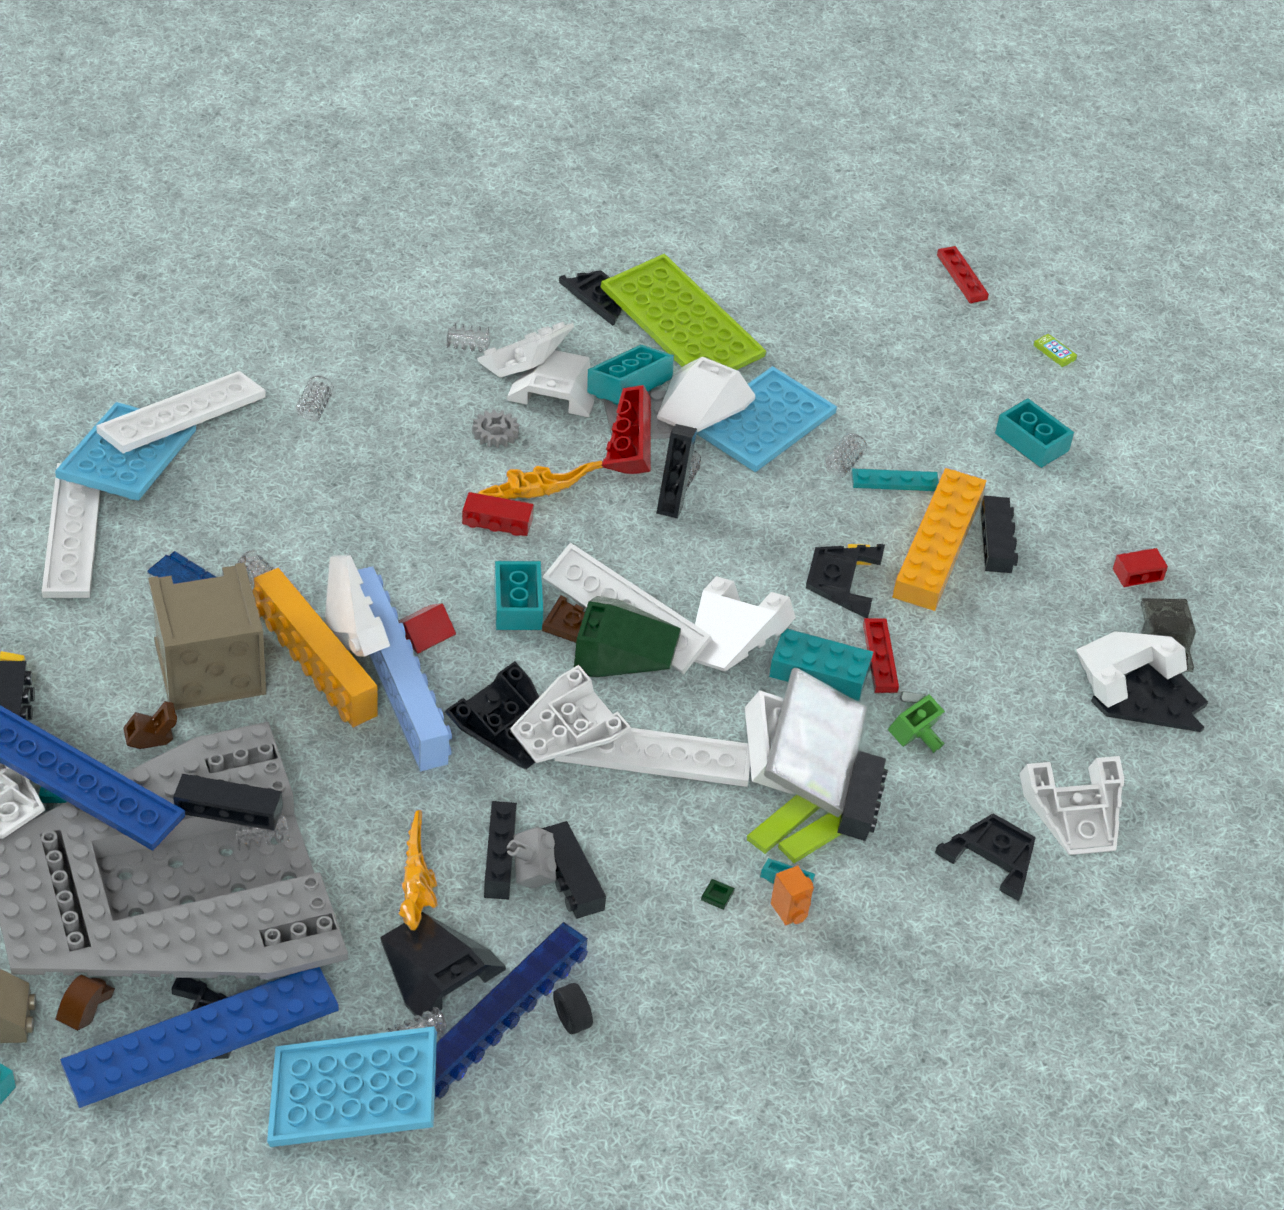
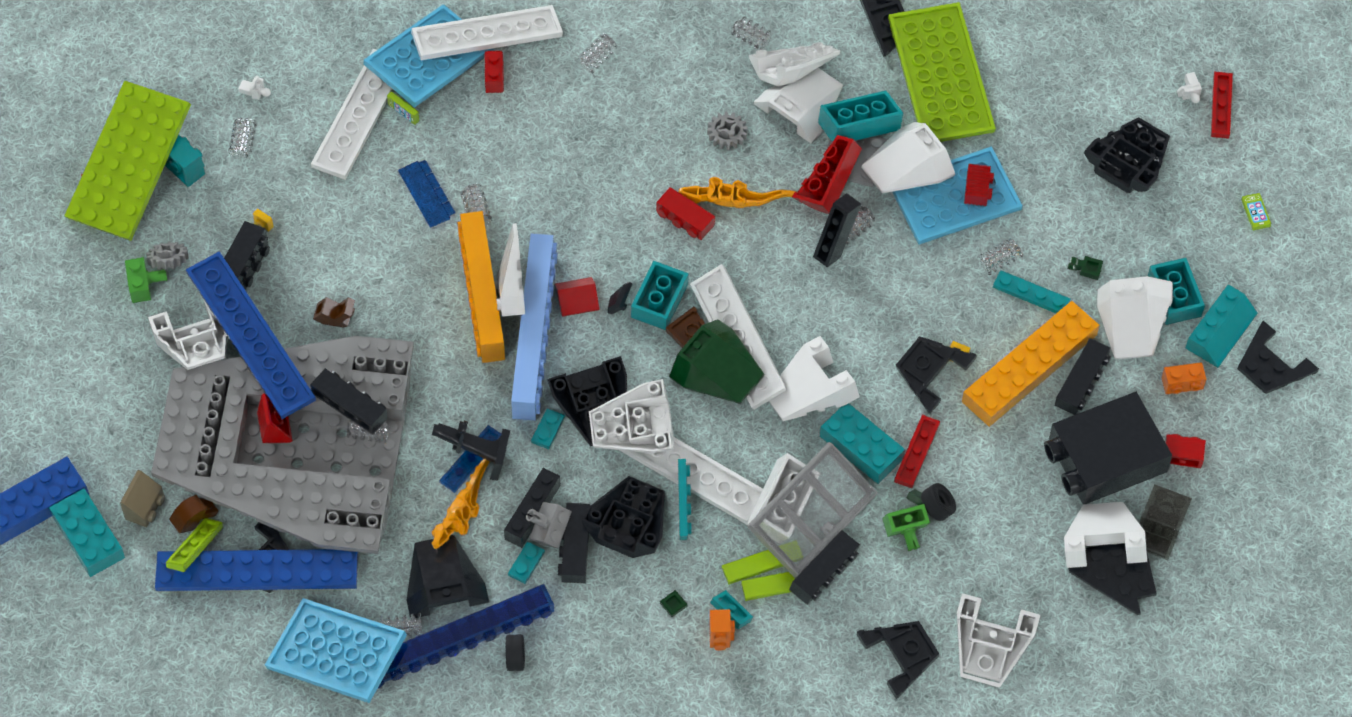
camera: 30 degrees right, 15 degrees up
(106, 1033) = (194, 545): none -> lime tile
(122, 508) = (403, 108): none -> lime tile
(137, 861) = (272, 427): none -> red slope
(208, 638) = (400, 256): dark tan container -> none
(209, 446) = (494, 72): none -> red brick
(396, 827) = (466, 463): none -> clear blue tile
(428, 803) = (490, 450): none -> black piece
(468, 767) = (547, 428): none -> teal plate
(475, 613) = (618, 299): none -> black piece
(524, 912) = (526, 562): none -> teal plate
(618, 824) = (628, 518): none -> black wedge
(664, 775) = (684, 508): none -> teal plate
(785, 398) = (977, 184): none -> red brick
(911, 336) = (1129, 156): none -> black wedge
(925, 268) = (1192, 88): none -> white piece
(934, 439) = (1089, 266): none -> dark green plate
(939, 690) = (938, 502): none -> black tyre
(1011, 461) = (1134, 314): none -> white wedge
(1071, 585) = (1108, 448): none -> black brick
(1094, 504) = (1183, 378): none -> orange brick
(1095, 451) = (1222, 326): none -> teal slope
(1159, 474) = (1266, 368): none -> black wing

